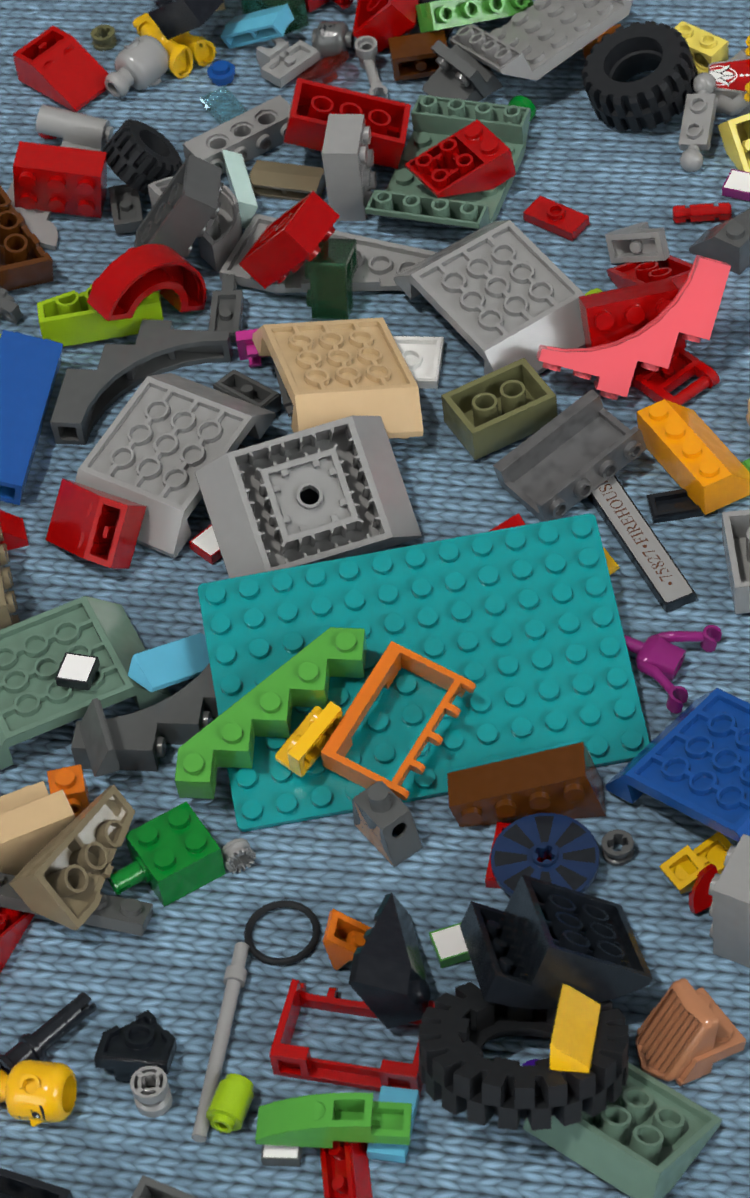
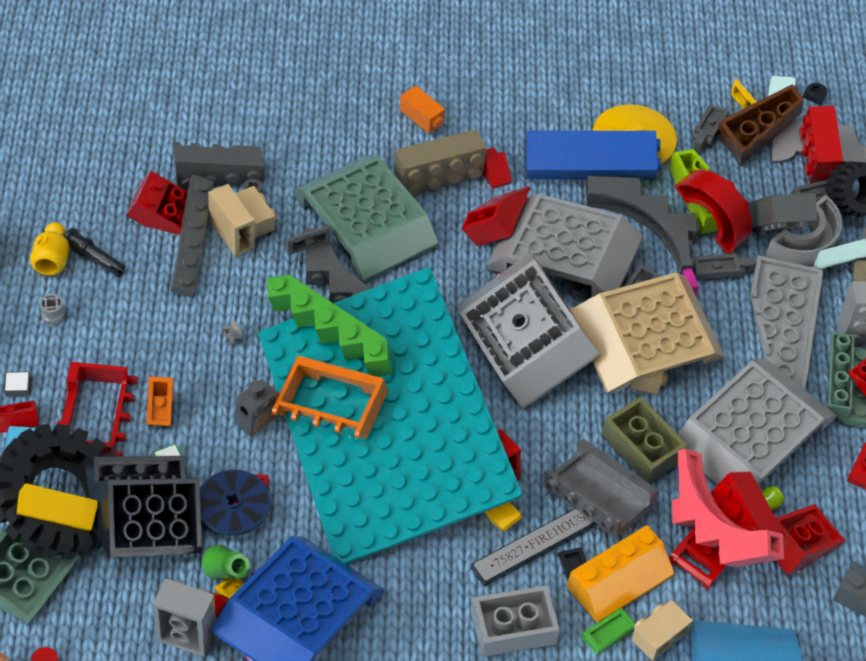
camera: 70 degrees right, 5 degrees up
(71, 869) = (204, 239): dark tan wedge -> none
(74, 785) = (273, 235): orange brick -> none
(77, 671) = (358, 217): tile -> none
(135, 1046) = (85, 298): black plate -> none
(170, 663) = (372, 265): medium azure slope -> none
(170, 855) = (228, 294): green brick -> none
(230, 1103) = (43, 350): lime brick -> none
(234, 980) = (139, 343): light grey bar -> none
(289, 960) = (179, 347): black tyre -> none
(290, 241) = (771, 281): red brick -> none
(309, 738) = (311, 349): yellow bracket -> none
(331, 279) = (755, 317): clear green brick -> none
(332, 1117) = (19, 399): bright green slope -> none
(390, 967) = (136, 417): black wedge -> none
(423, 358) = (693, 384): white tile -> none
(540, 782) = (289, 487): reddish brown wedge -> none
(615, 837) = (258, 545): dark grey bush -> none
(637, 244) = (841, 519): light grey slope -> none
(656, 859) = (223, 563): none -> bright green plant
(663, 660) = (418, 565): magenta piece -> none
(685, 1035) = (93, 598): nougat piece -> none

